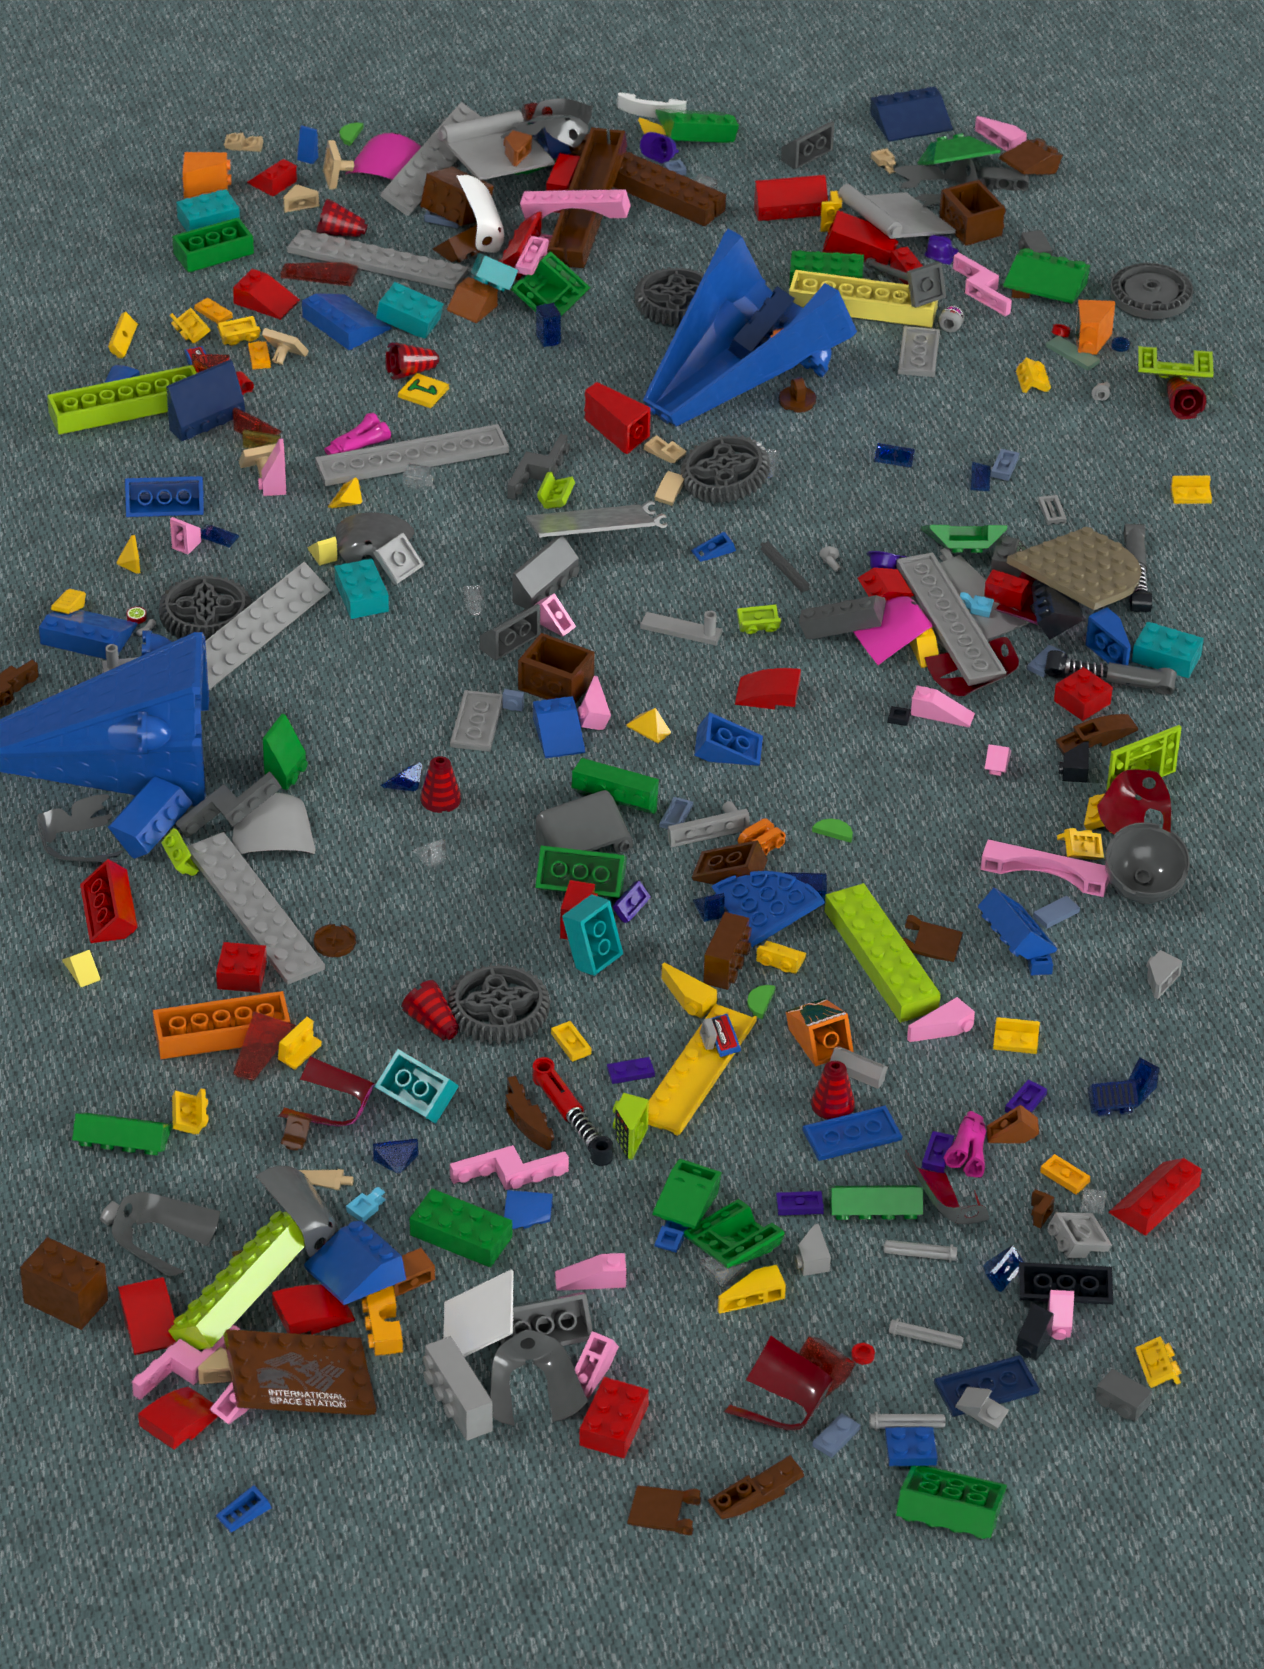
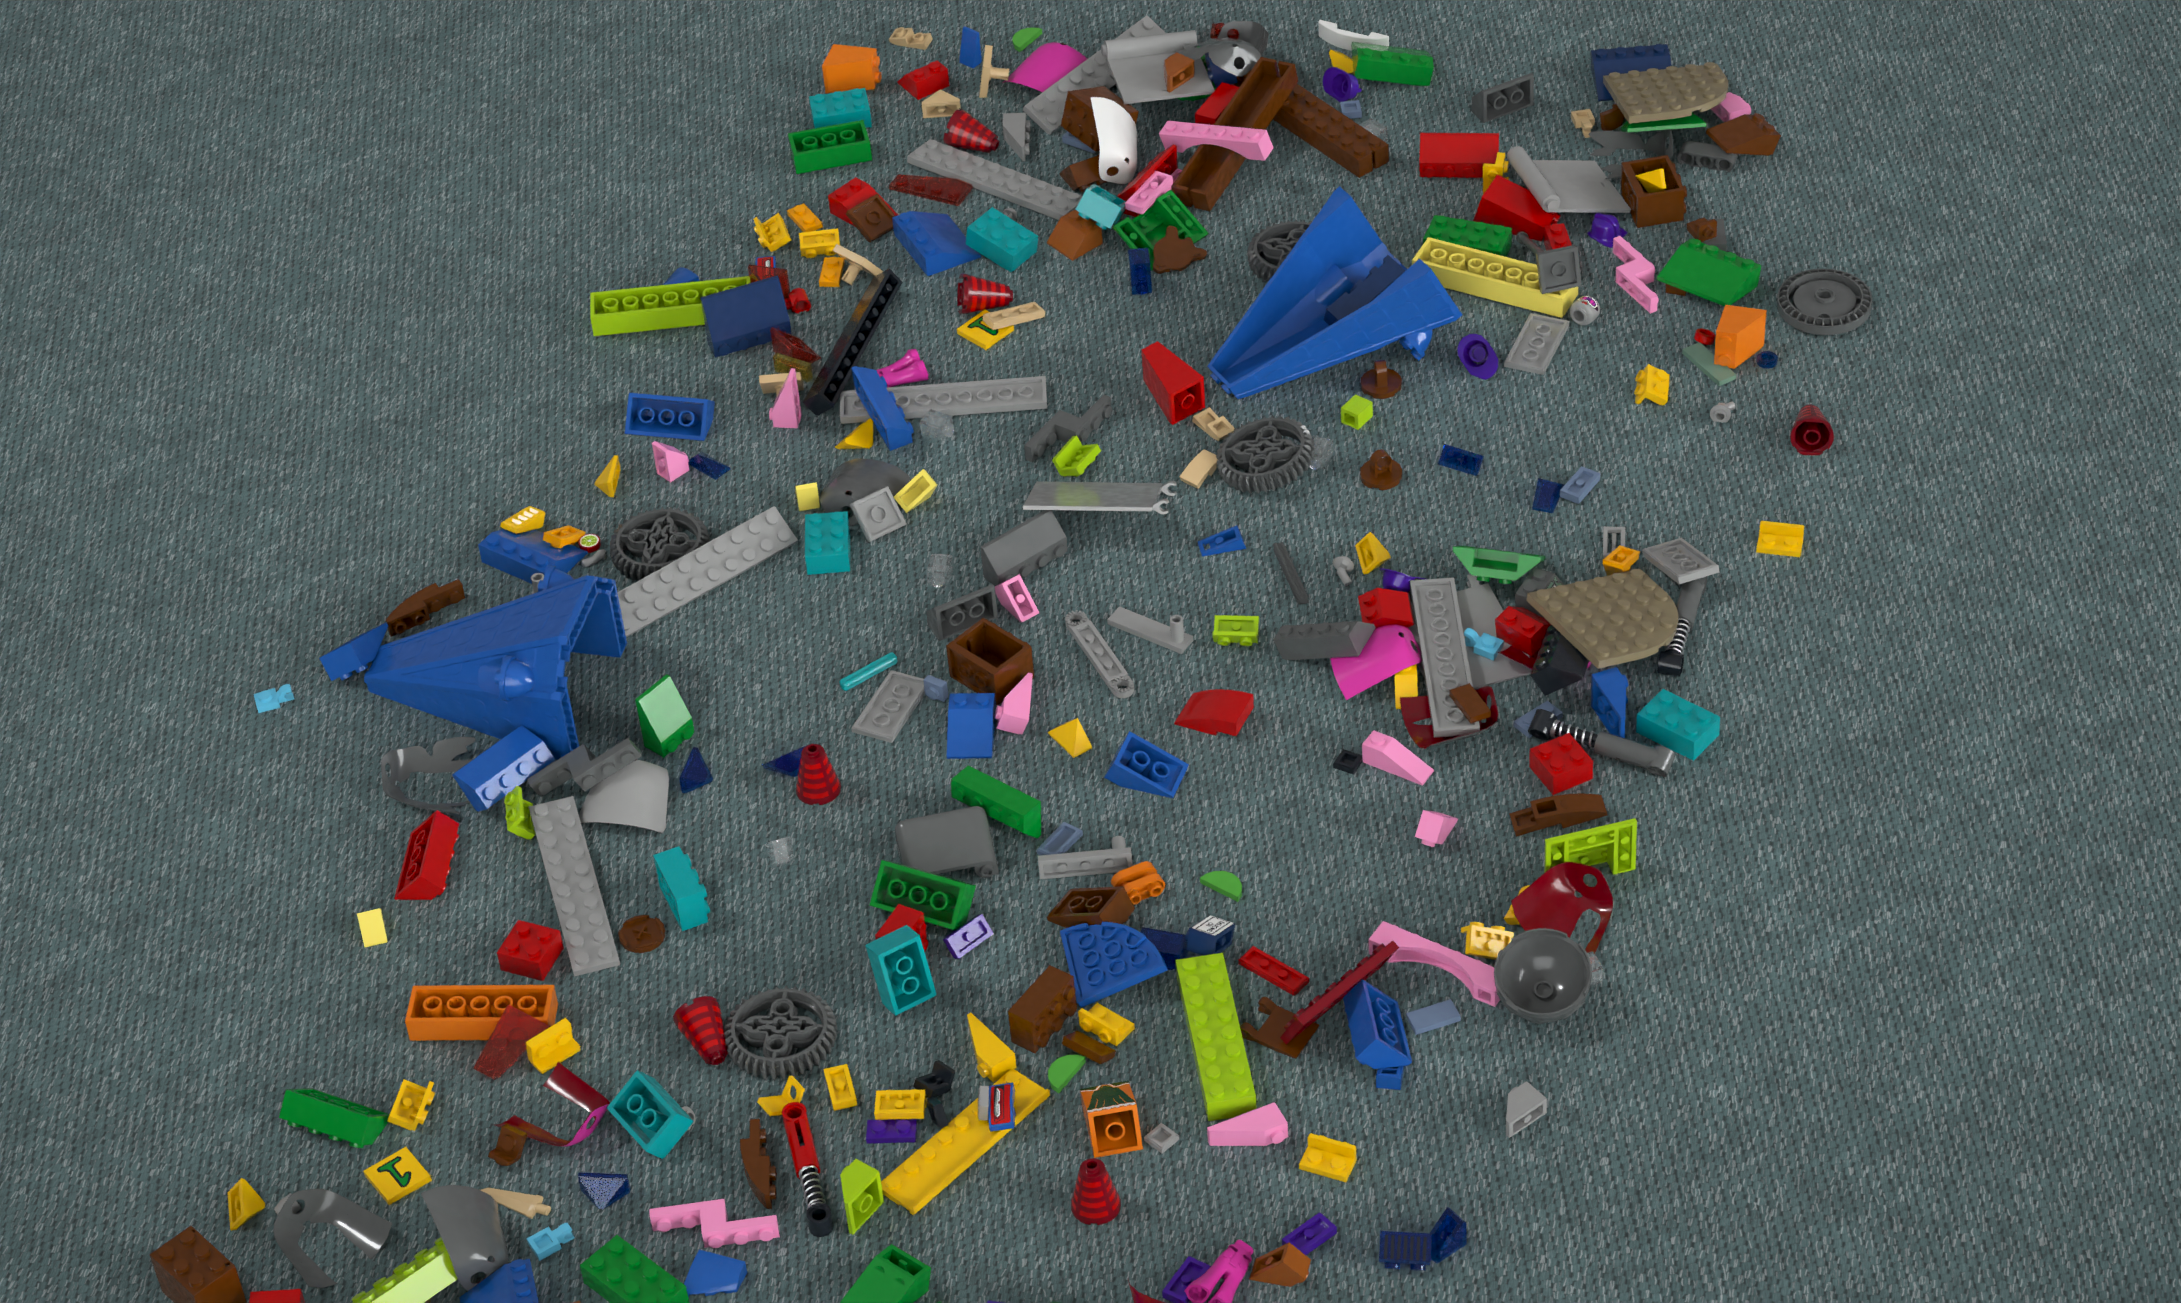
camera: 20 degrees right, 0 degrees up
(67, 1217) = (243, 1204): none -> yellow slope
(113, 611) = (563, 536): none -> light orange plate
(122, 335) = (700, 235): yellow tile -> none
(201, 1173) = (397, 1175): none -> yellow tile
(280, 303) = (872, 218): none -> reddish brown tile
(309, 413) = (852, 342): none -> black brick
(326, 799) = (695, 772): none -> clear blue slope
(360, 895) = (681, 888): none -> teal brick
(365, 467) = (882, 407): none -> blue slope
(379, 216) = (1017, 133): none -> light grey slope
(425, 534) = (916, 491): none -> light yellow slope
(443, 694) = (868, 671): none -> teal axle
(446, 375) = (1013, 315): none -> tan tile
(525, 1061) = (774, 1104): none -> yellow bracket
(571, 306) = (1175, 253): none -> reddish brown tile
(633, 1046) = (900, 1104): none -> yellow bracket
(646, 653) = (1099, 654): none -> light grey plate
(655, 1023) = (937, 1082): none -> black bracket
(667, 1048) = (937, 1112): none -> black tile
(711, 906) = (1051, 954): clear blue slope -> none
(774, 977) = (1088, 1047): none -> reddish brown tile
(788, 425) = (1356, 412): none -> lime brick
(829, 472) = (1380, 471): none -> reddish brown tile
(844, 871) = (1210, 936): none -> dark blue brick
(847, 541) = (1371, 553): none -> yellow slope
(852, 1133) = (1102, 1243): blue tile -> none
(861, 1067) = (1137, 1166): light grey piece -> none
(867, 1041) = (1161, 1138): none -> light grey tile
(875, 361) = (1477, 349): none -> dark purple piece
(906, 894) = (1273, 971): none -> red tile
(910, 153) = (1611, 118): none -> reddish brown slope
(954, 126) = (1667, 92): none -> dark tan plate
(975, 900) = (1337, 991): none -> dark red plate
(976, 202) = (1653, 181): none -> yellow slope
(991, 653) = (1470, 703): none -> reddish brown tile
(1029, 240) = (1702, 229): none -> reddish brown bracket
(1067, 522) = (1620, 560): none -> light orange slope
(1075, 764) = (1521, 845): black slope -> none
(1118, 516) = (1680, 561): none -> light grey tile
(1201, 367) = (1784, 386): lime slope -> none

